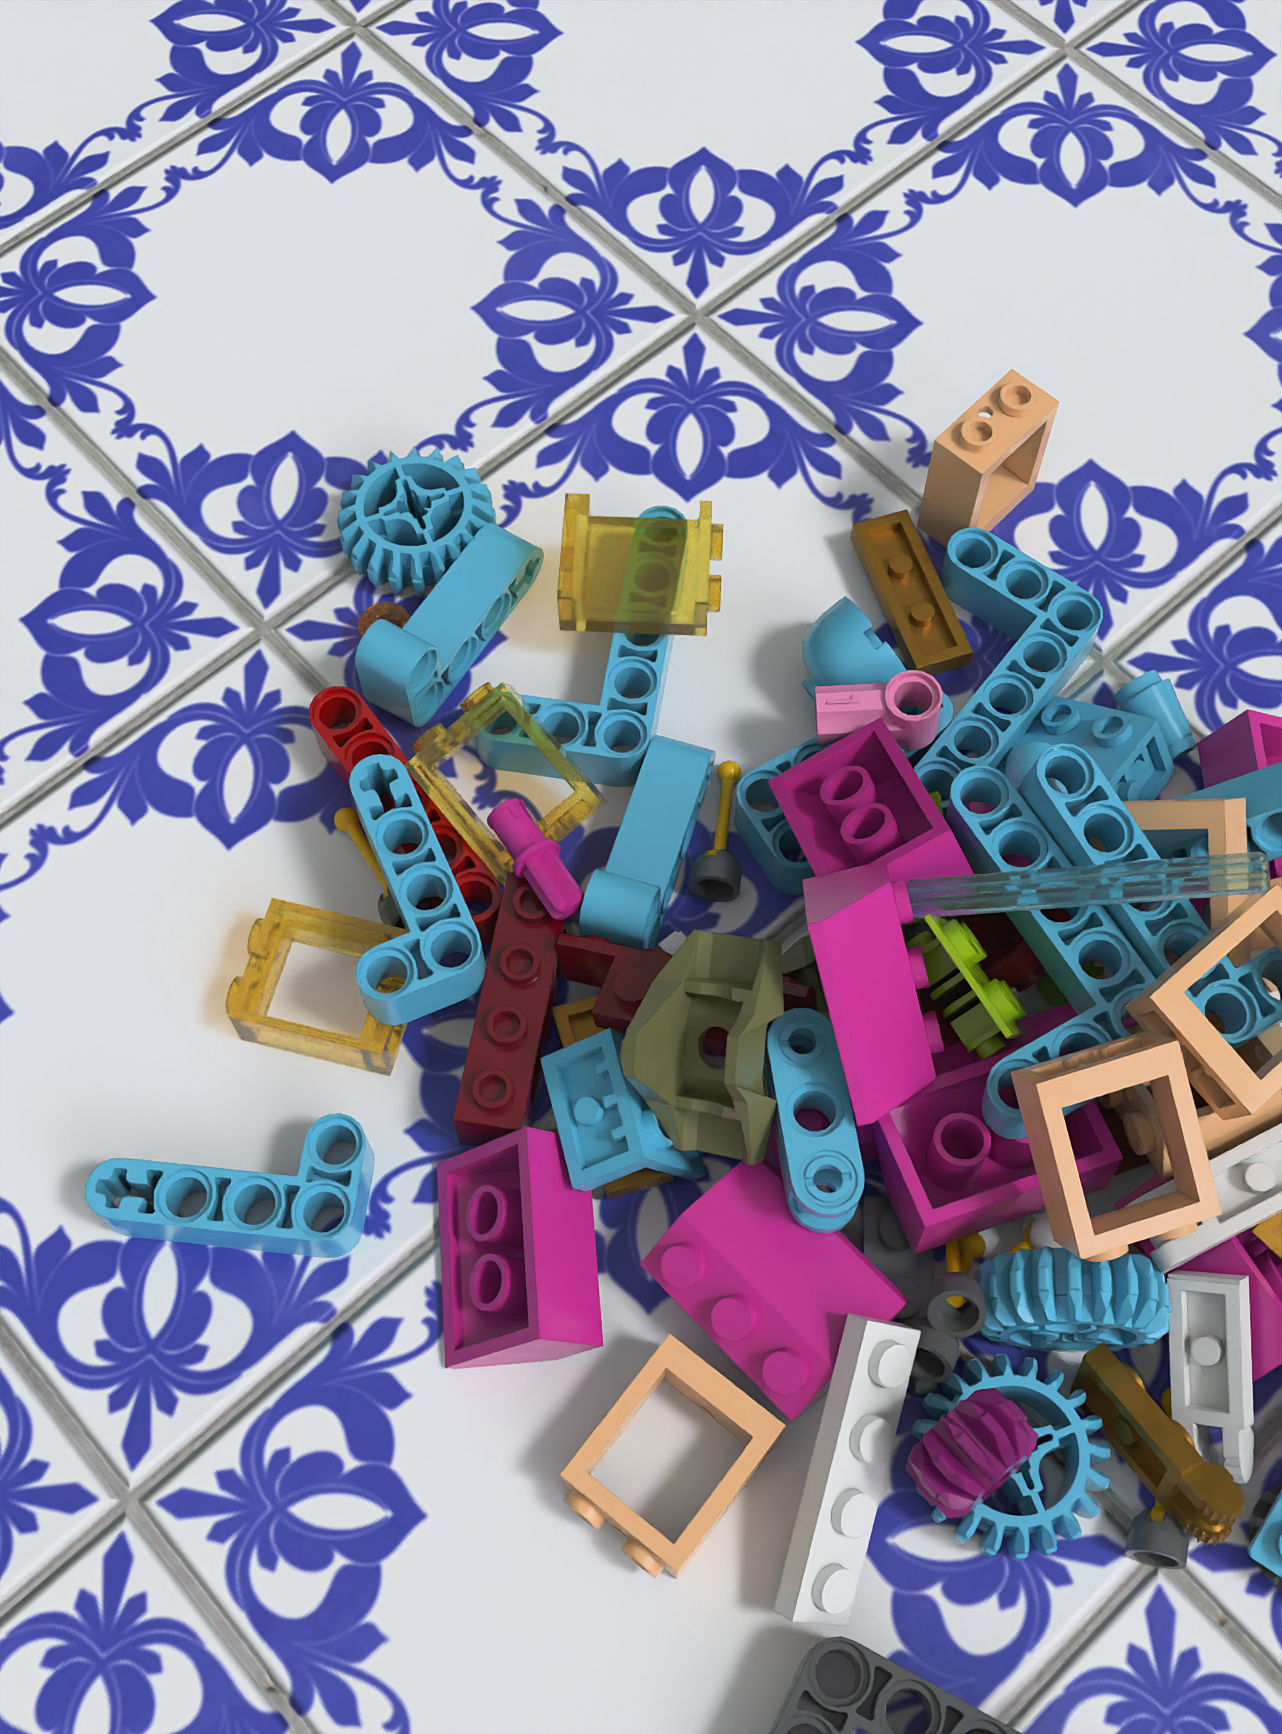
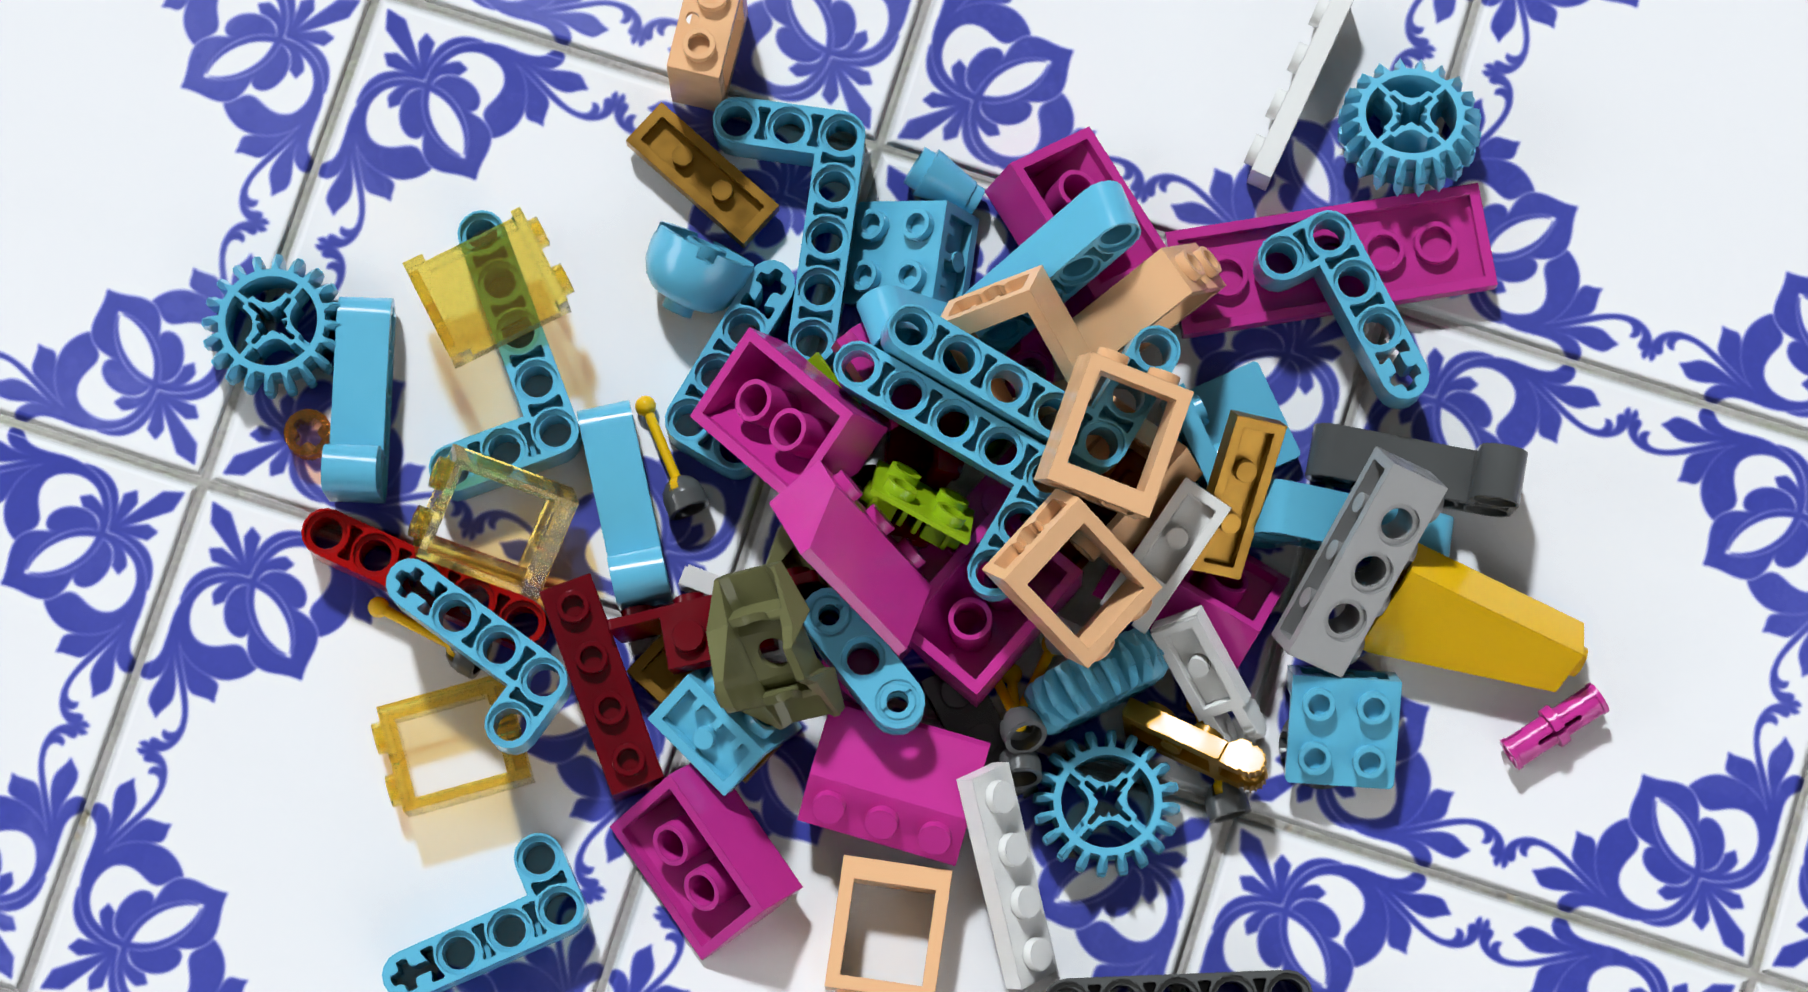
camera: 35 degrees left, 15 degrees up
(536, 858) = (558, 574): dark pink axle -> none
(848, 708) = (728, 318): bright pink piece -> none
(971, 1452) = (1080, 824): magenta gear -> none
(1091, 885) = (965, 409): clear light blue axle -> none

